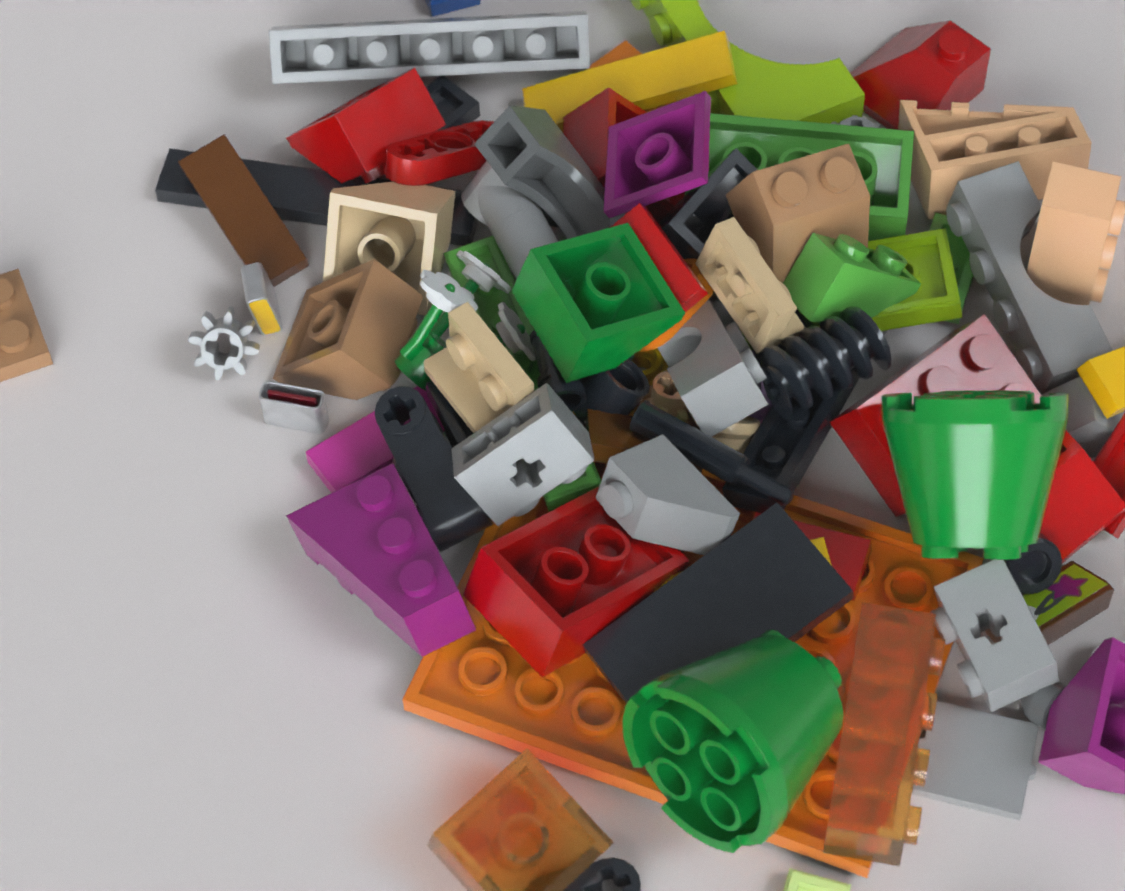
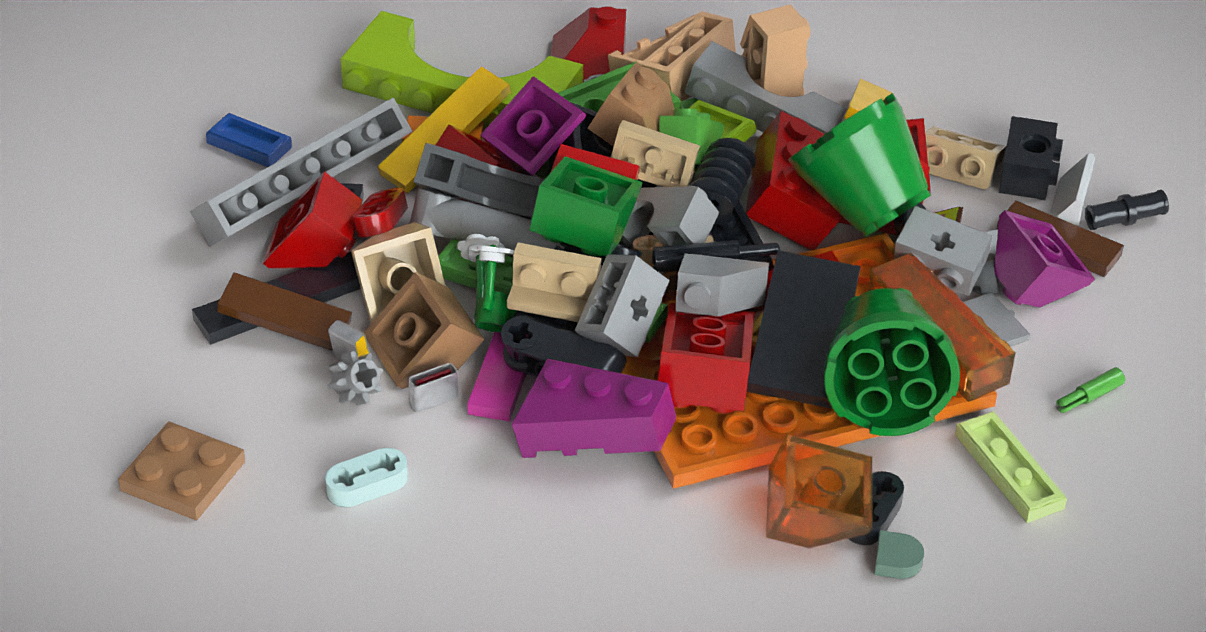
camera: 45 degrees left, 15 degrees down
(128, 471) = (366, 477): none -> light aqua beam

